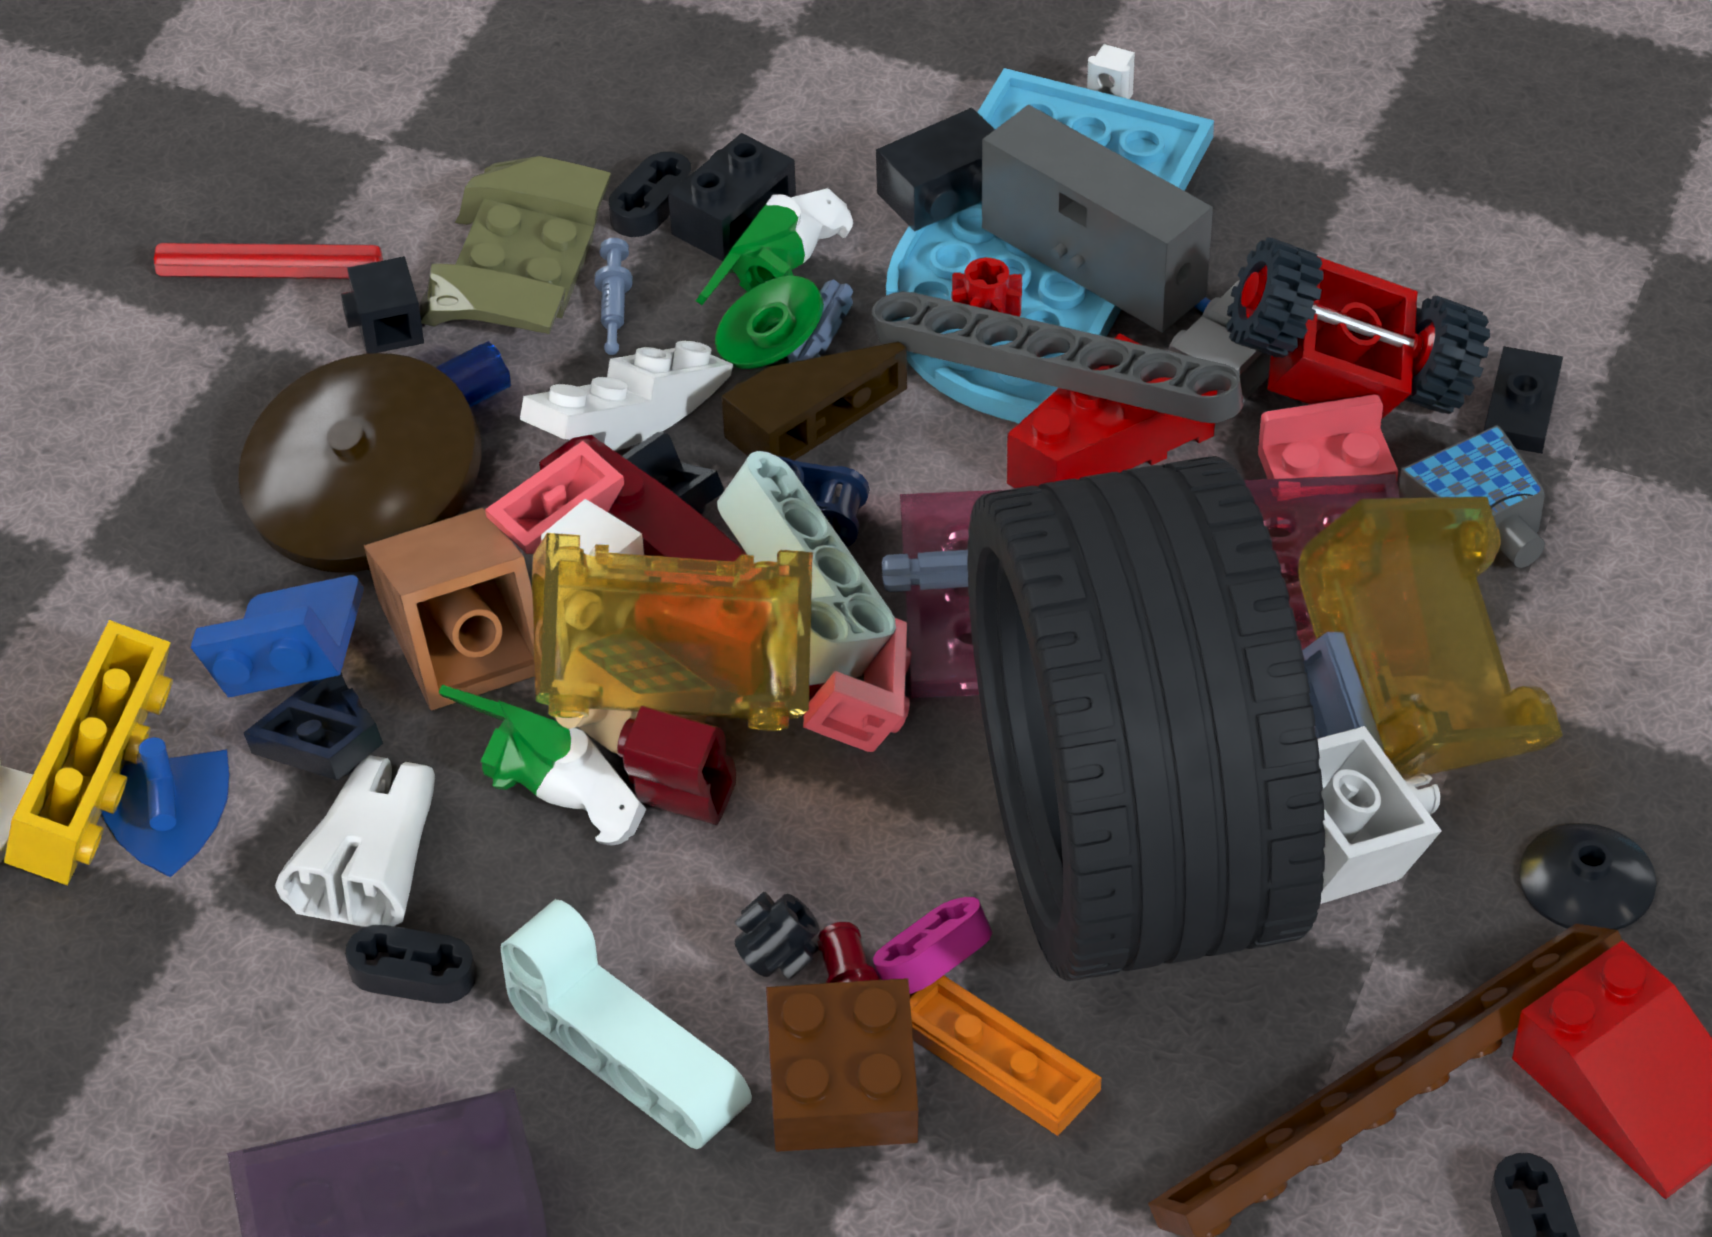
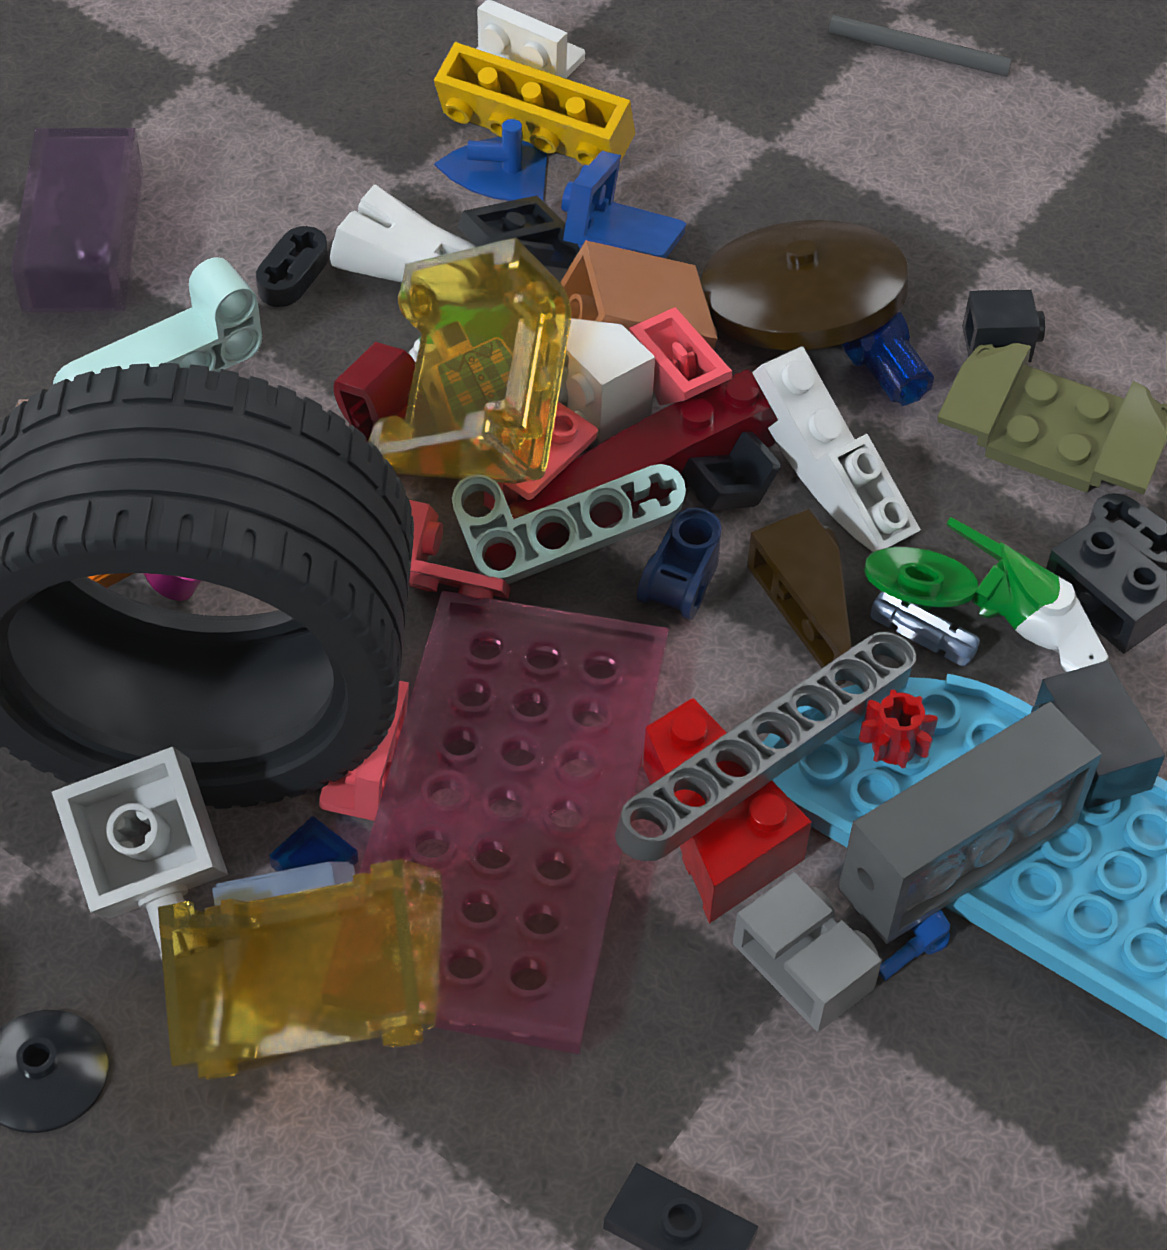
camera: 100 degrees right, 5 degrees up
(262, 260) = (1084, 273): axle -> none
(613, 283) = (998, 486): sand blue piece -> none
(928, 571) = (549, 627): sand blue axle -> none
(1325, 440) = (638, 1004): coral bracket -> none
(1353, 333) = (751, 1019): brick -> none
(1492, 469) = (525, 1115): torso -> none

